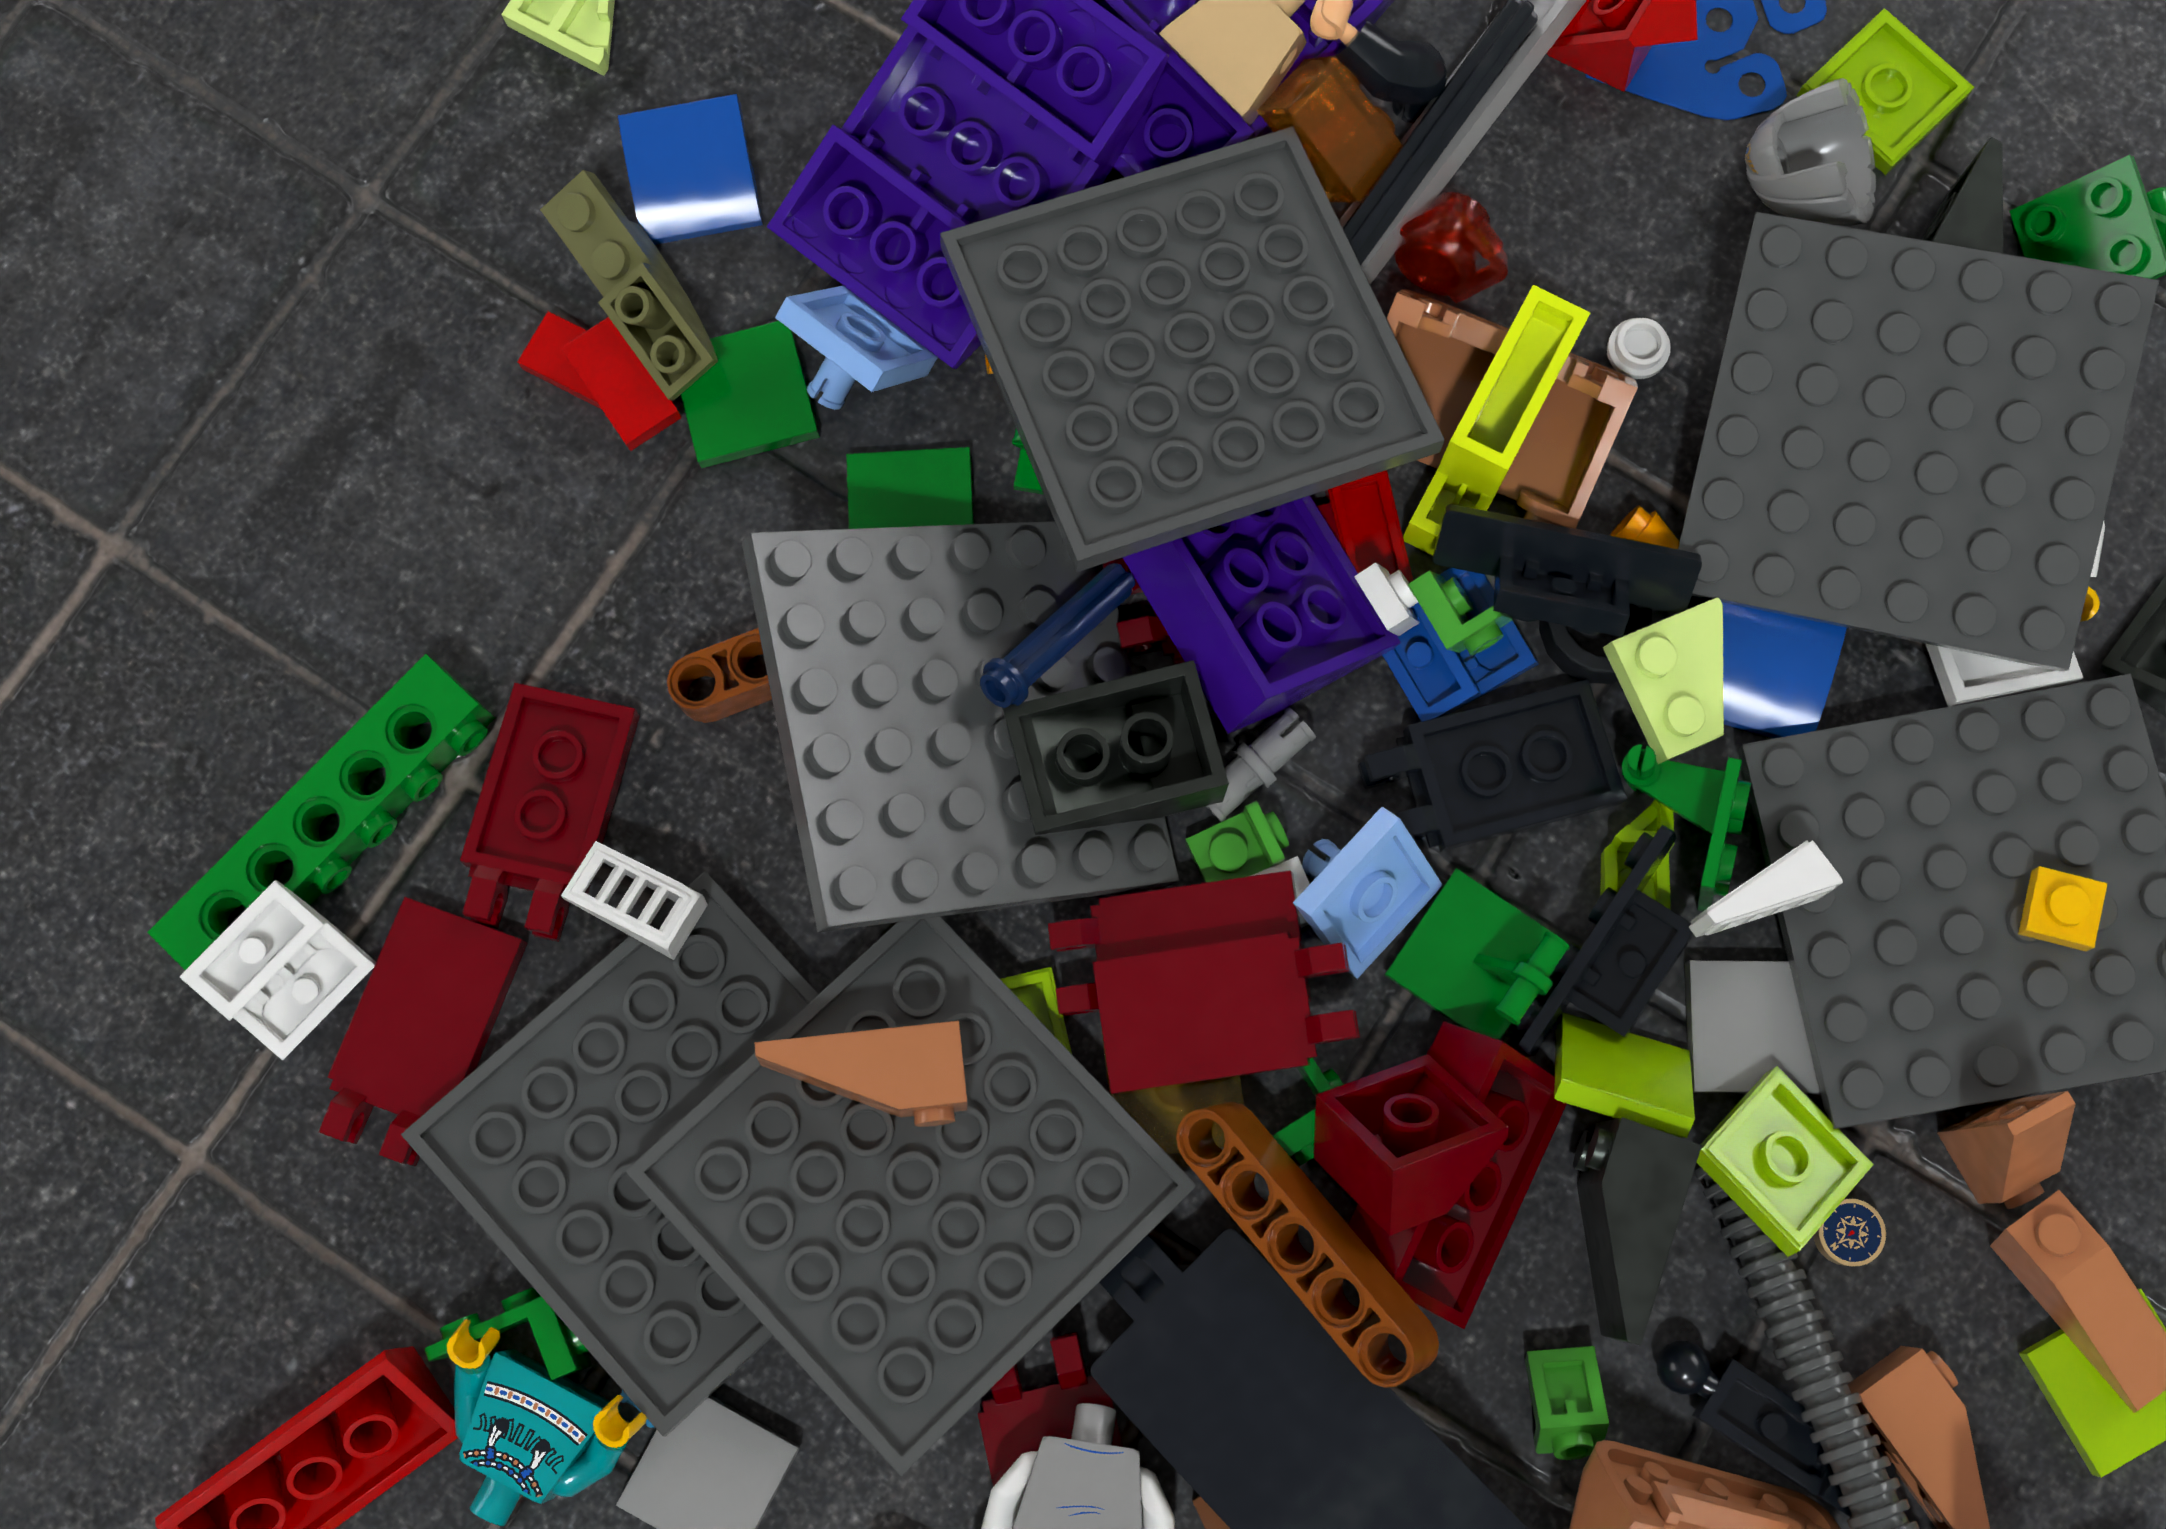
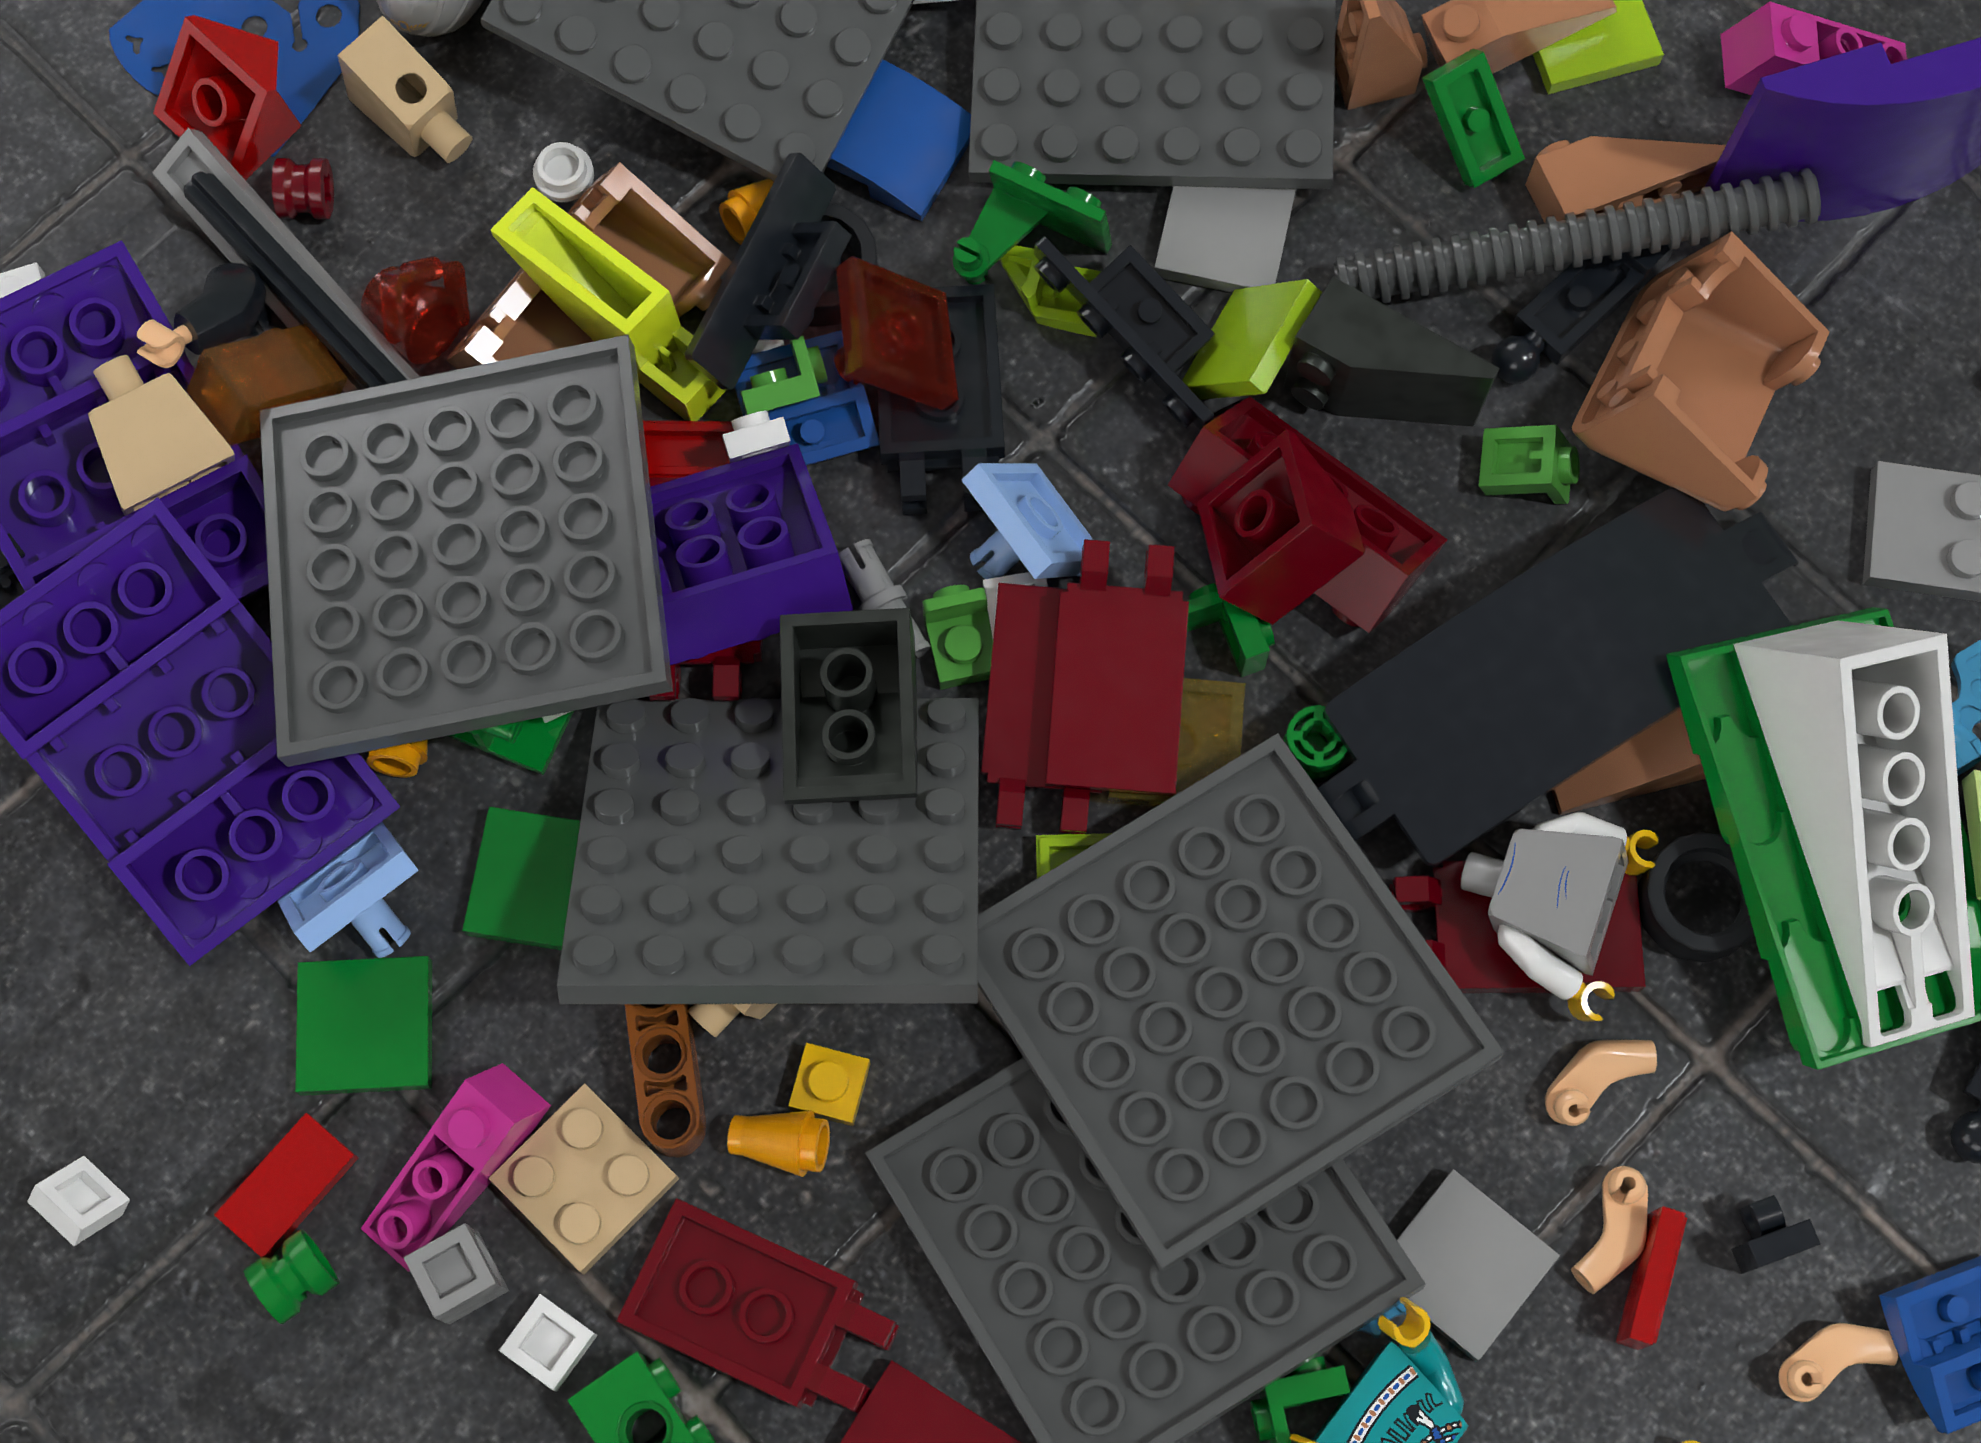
camera: 85 degrees left, 5 degrees down
(485, 627) = (548, 1343): none -> white plate
(498, 386) = (284, 1281): none -> green wheel
(523, 529) = (456, 1274): none -> light grey brick
(529, 189) = (78, 1200): none -> white plate
(620, 384) = (320, 1145): red tile -> none
(632, 505) = (452, 1164): none -> dark pink slope
(635, 284) = (216, 1111): olive slope -> none
(640, 621) = (584, 1178): none -> tan plate
(678, 923) = (879, 1186): white slope -> none
(690, 169) = (101, 1033): blue slope -> none
(705, 793) = (782, 1140): none -> light orange cone
(766, 826) = (829, 1084): none -> yellow plate
(890, 1069) = (1116, 987): nougat slope -> none
(1008, 679) = (758, 786): dark blue axle -> none
(1196, 1222) = (1315, 755): none -> green wheel
(1337, 1249) = (1383, 635): dark orange beam -> none
(1477, 958) = (1116, 441): green plate -> none
(1530, 707) = (895, 334): none -> clear red tile
(1551, 109) = (302, 188): none -> dark red wheel
(1673, 170) = (402, 93): none -> tan torso
(1675, 678) = (897, 208): yellowish green wing -> none
(1782, 1161) = (1353, 227): lime tile -> none
(1786, 884) = (1110, 161): white slope -> none
(1851, 1234) = (1421, 199): dark blue tile -> none
(1954, 1271) = (1473, 118): none -> green plate

